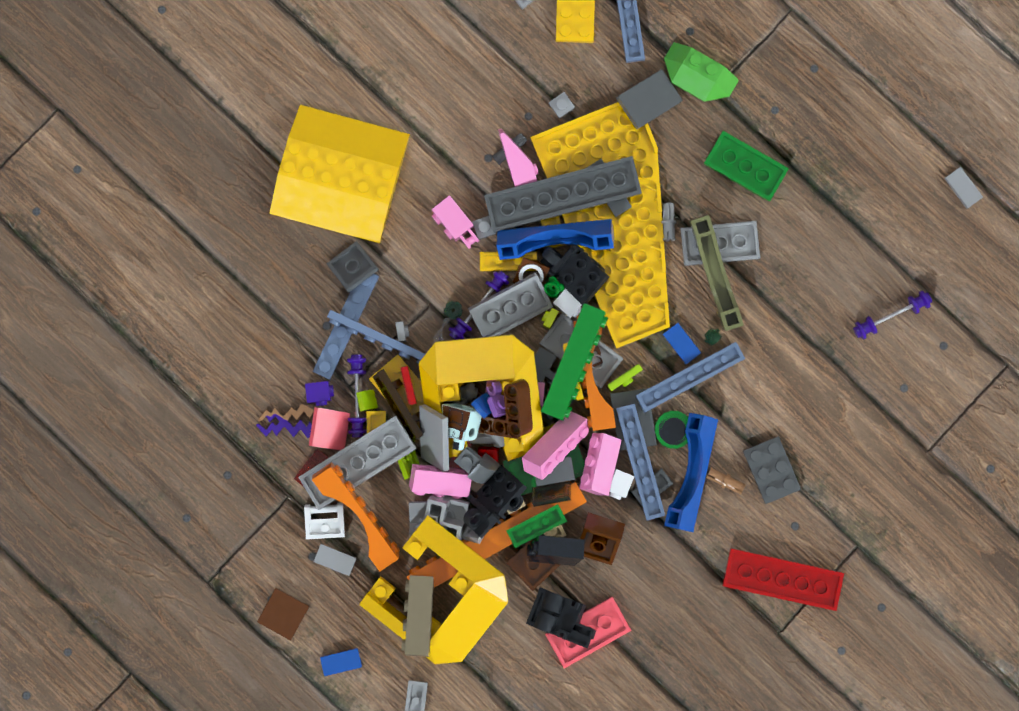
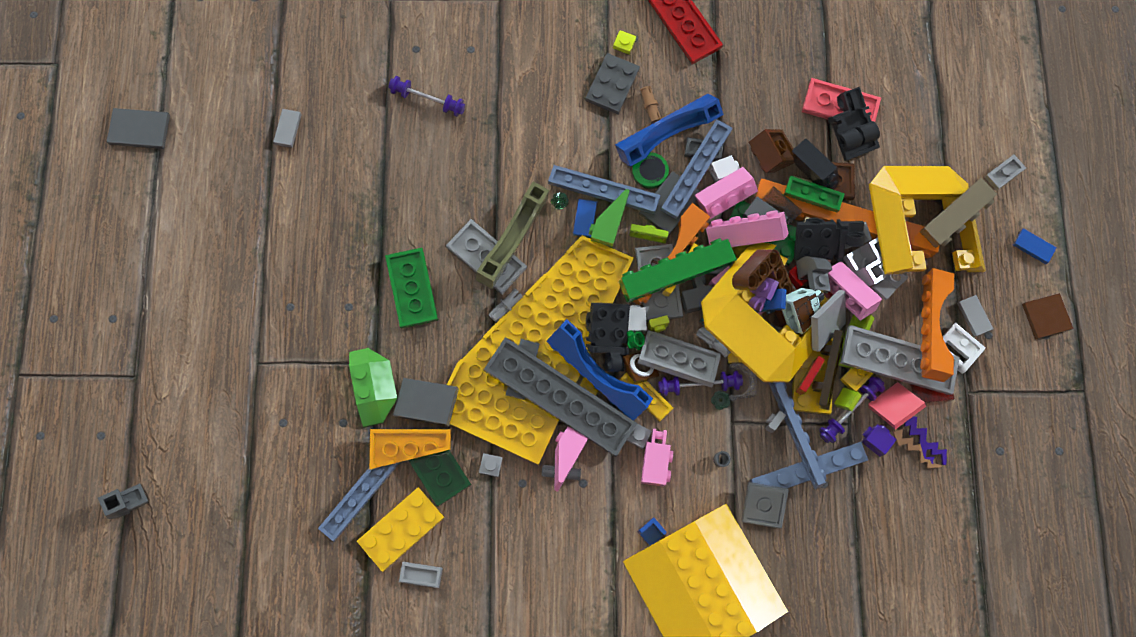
camera: 135 degrees left, 10 degrees down
(409, 172) = (652, 531): none -> blue panel
(409, 271) = (724, 461): none -> dark grey hinge
(591, 65) = (440, 475): none -> dark green plate
(633, 53) = (399, 445): none -> light orange wing
(657, 348) = (607, 224): none -> bright green slope
(798, 513) = (624, 42): none -> neon yellow plate

